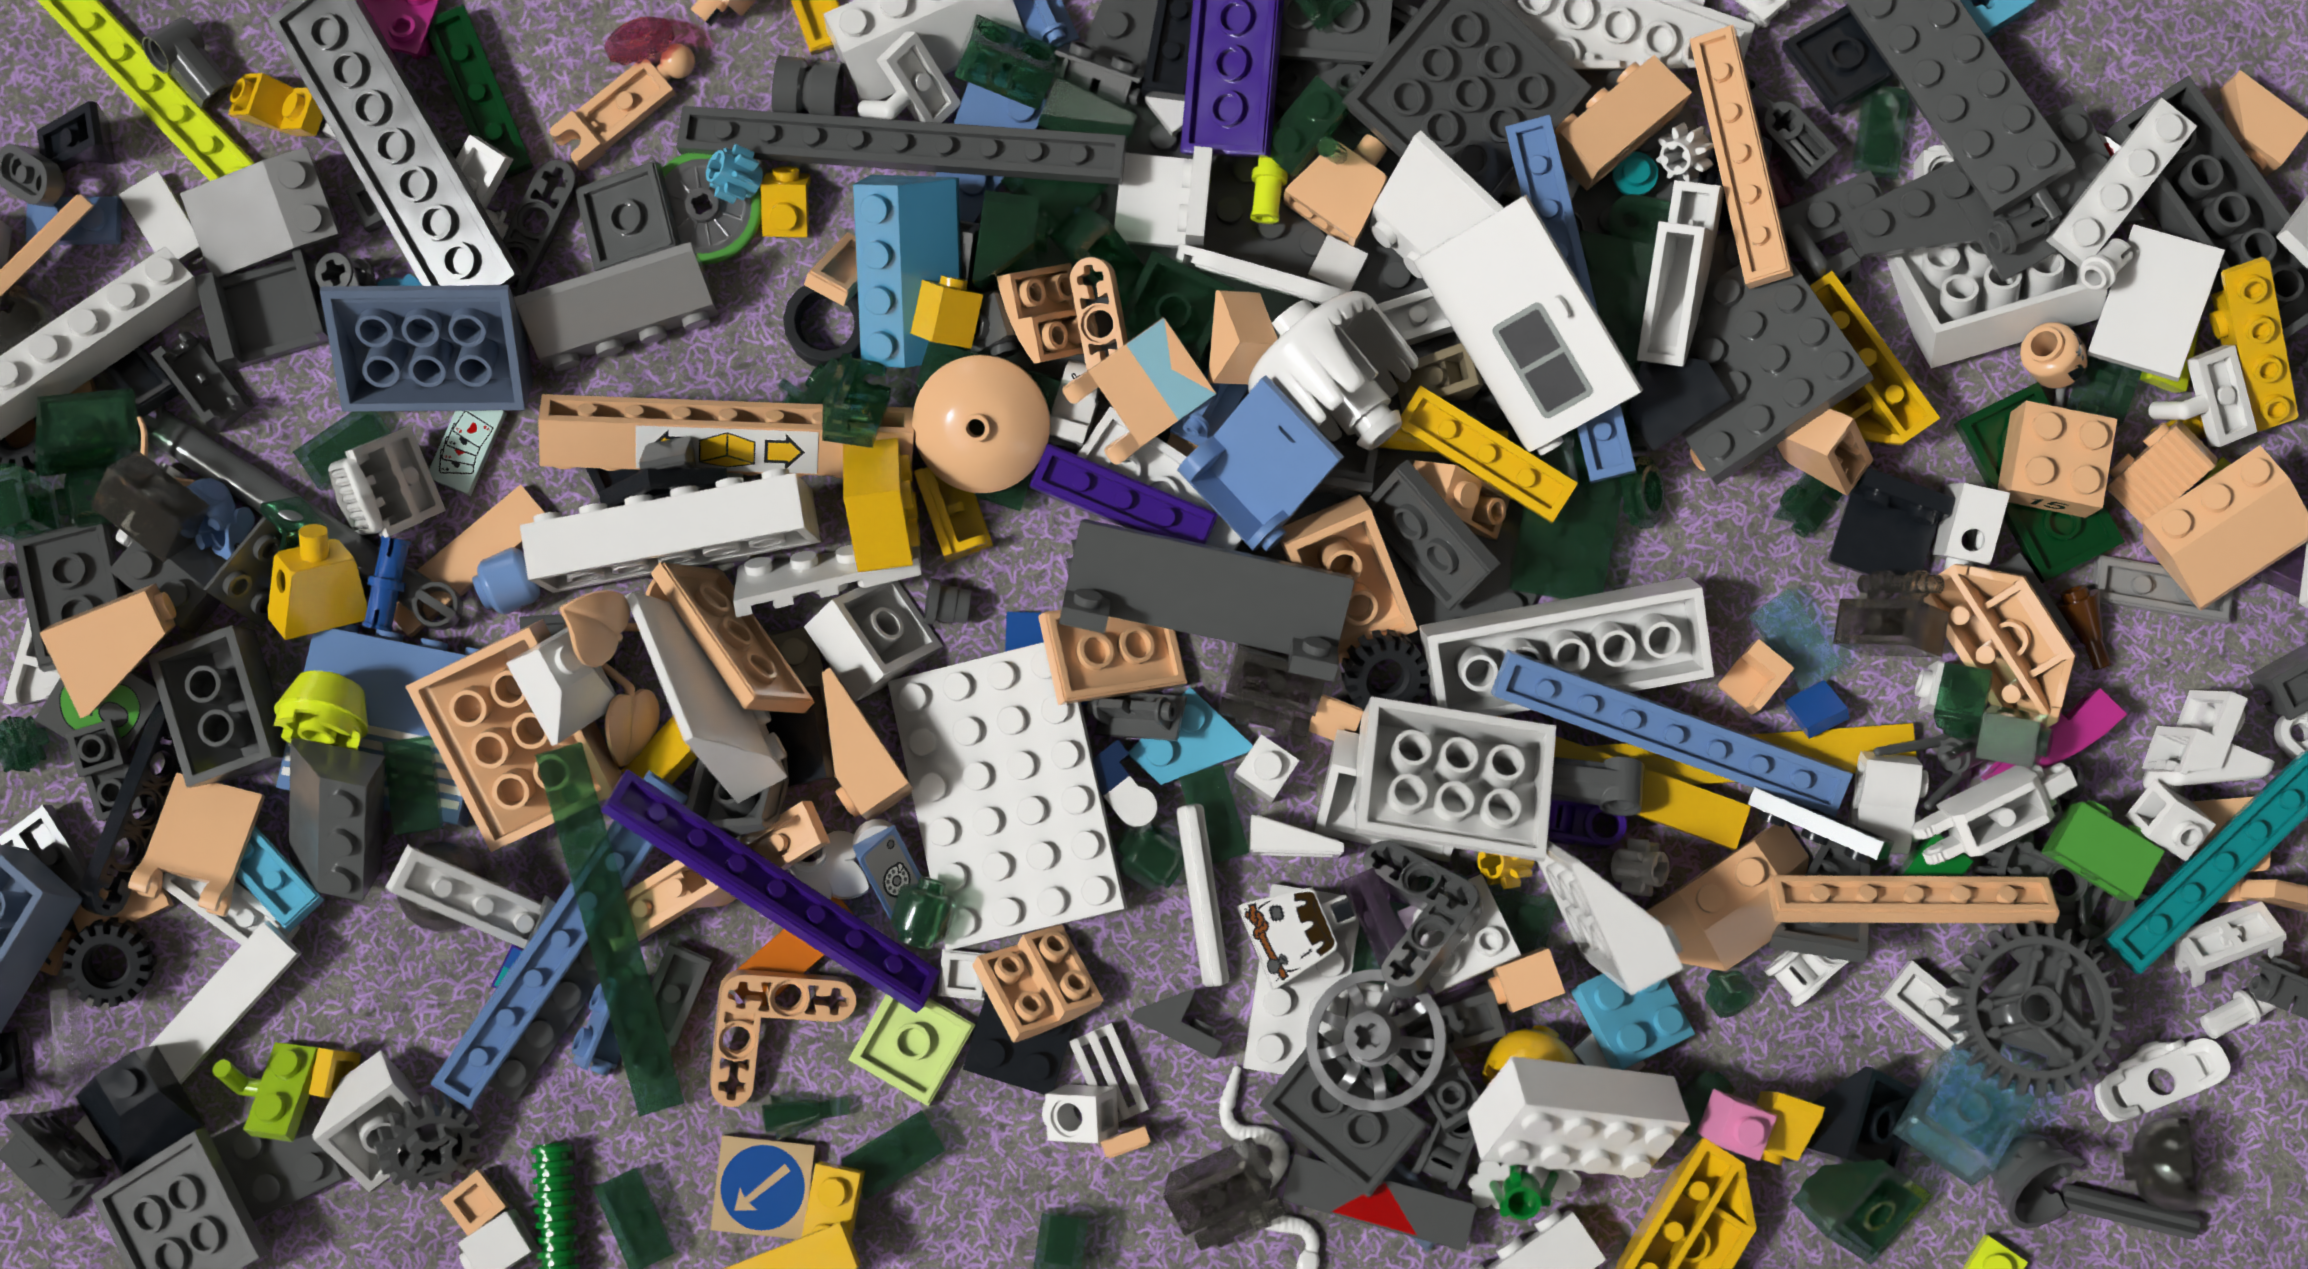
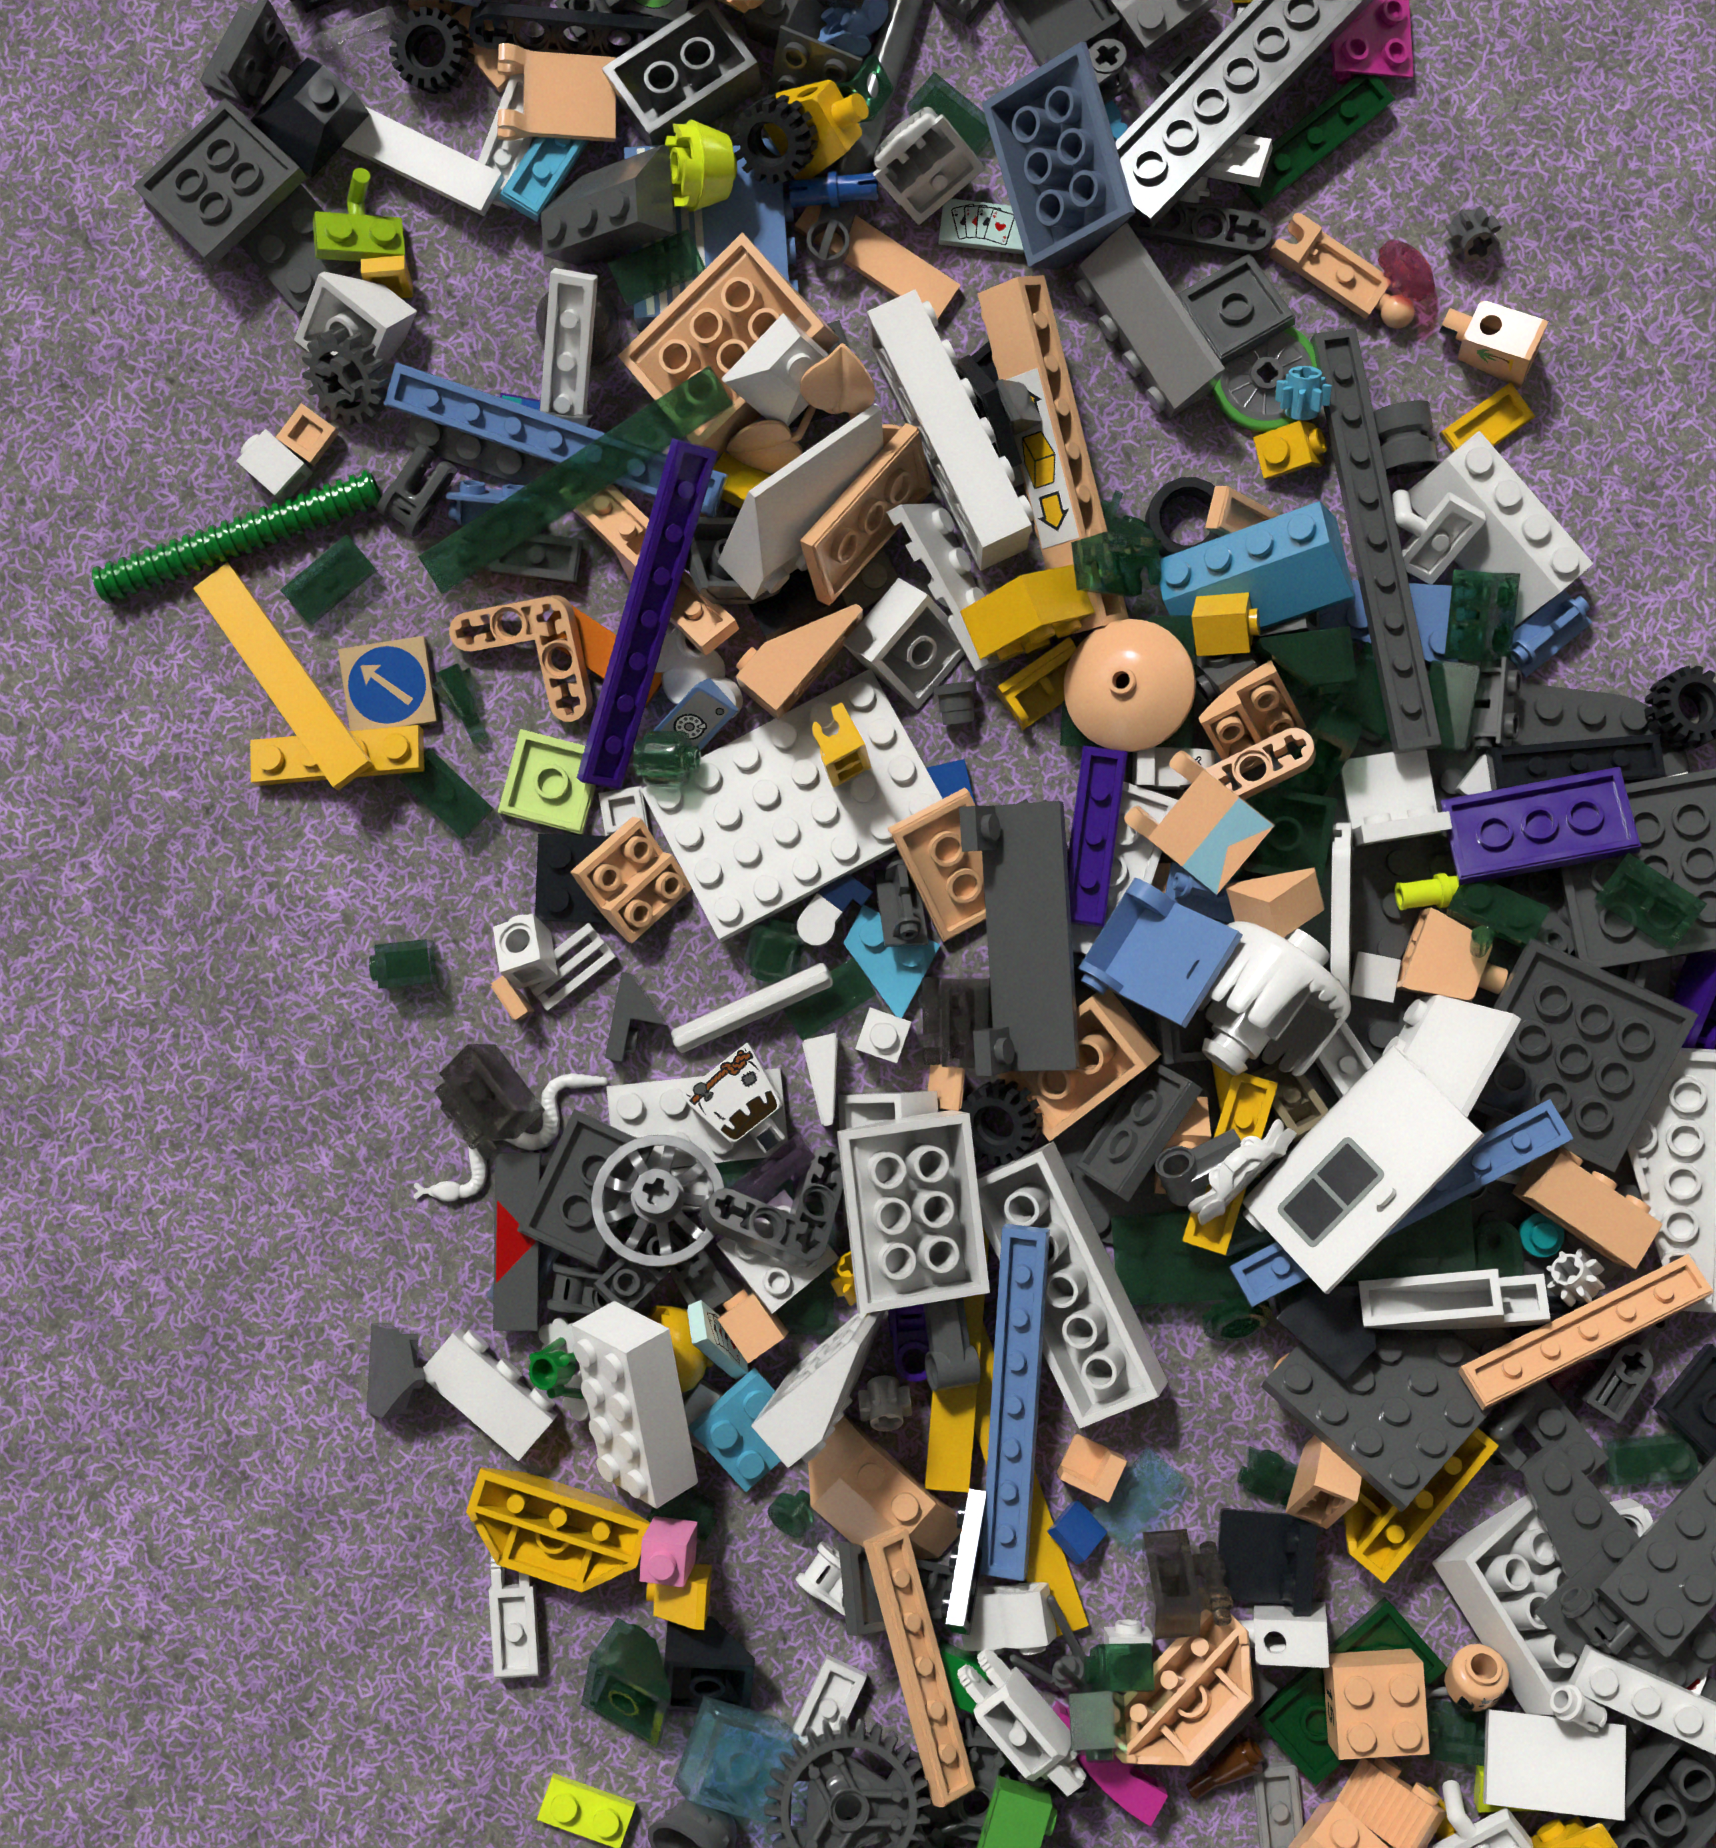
camera: 75 degrees right, 5 degrees up
(308, 604) = (793, 125): none -> black tyre
(504, 582) = (861, 292): medium blue head -> none
(572, 1119) = (404, 501): none -> dark grey piece
(969, 724) = (843, 753): none -> yellow hinge
(1485, 494) = (1186, 1170): none -> dark grey piece
(1497, 443) = (1240, 1170): none -> white piece
(1533, 1021) = (713, 1340): none -> light aqua tile

